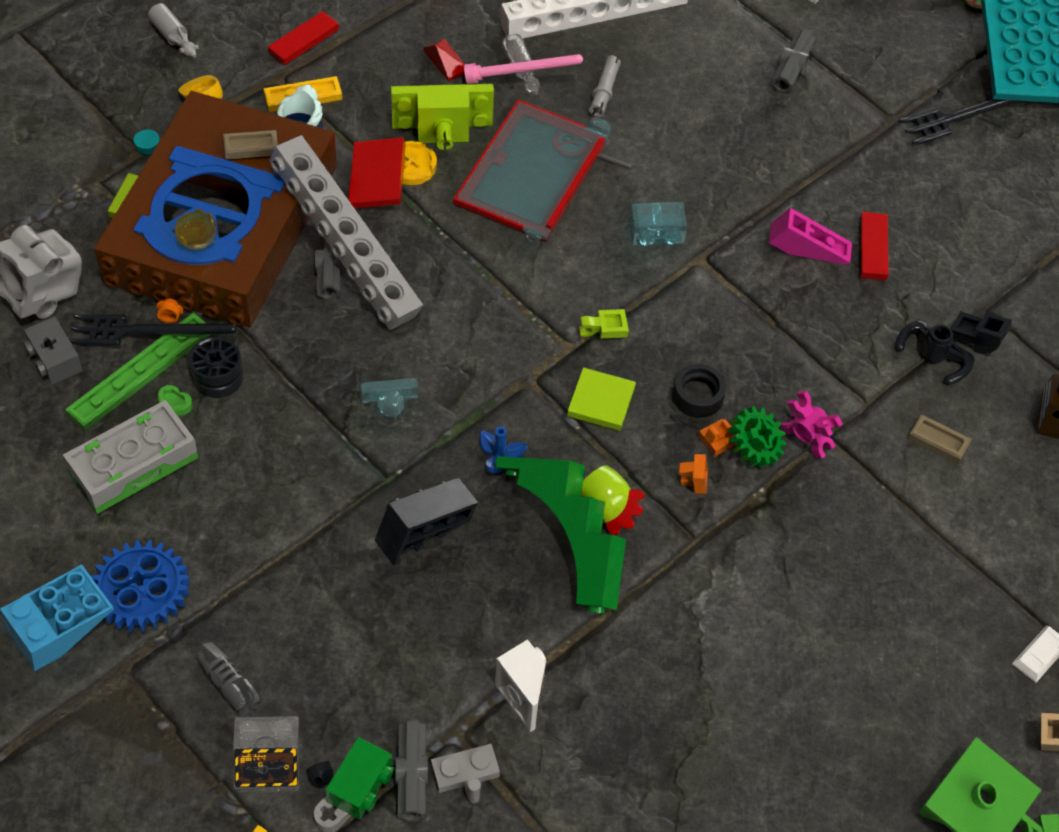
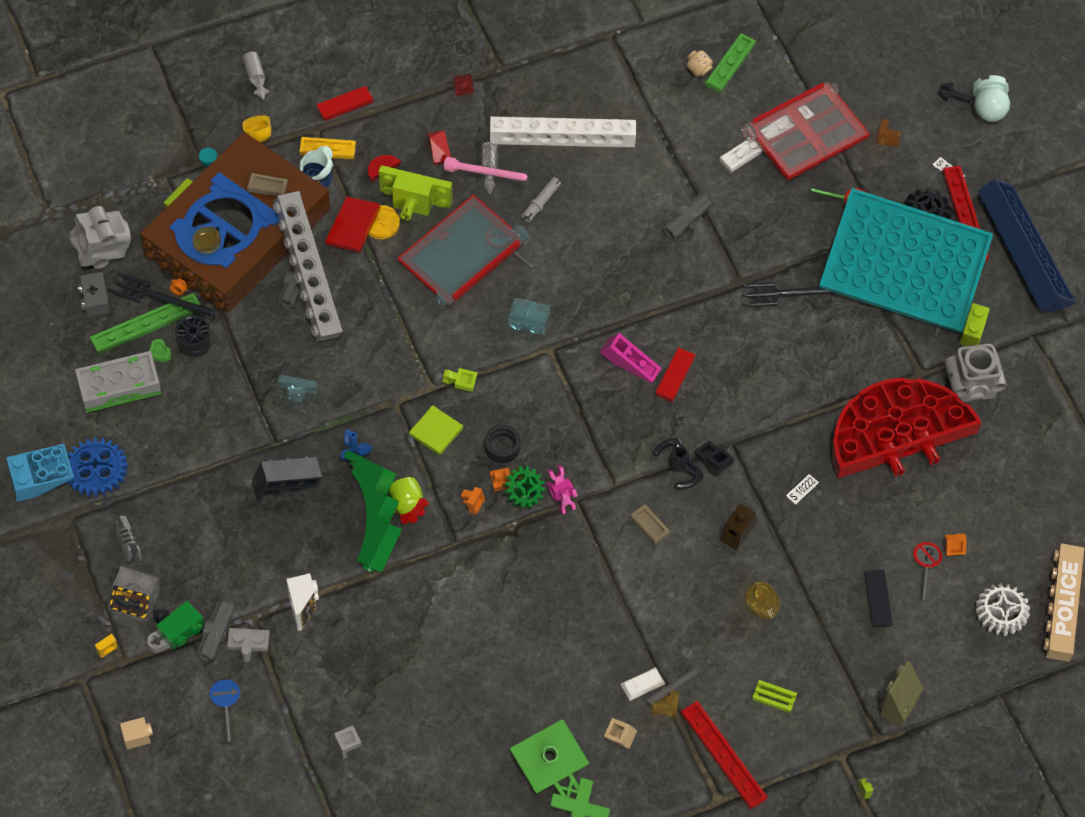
camera: 20 degrees right, 5 degrees up
(380, 99) = (384, 160): none -> red tile

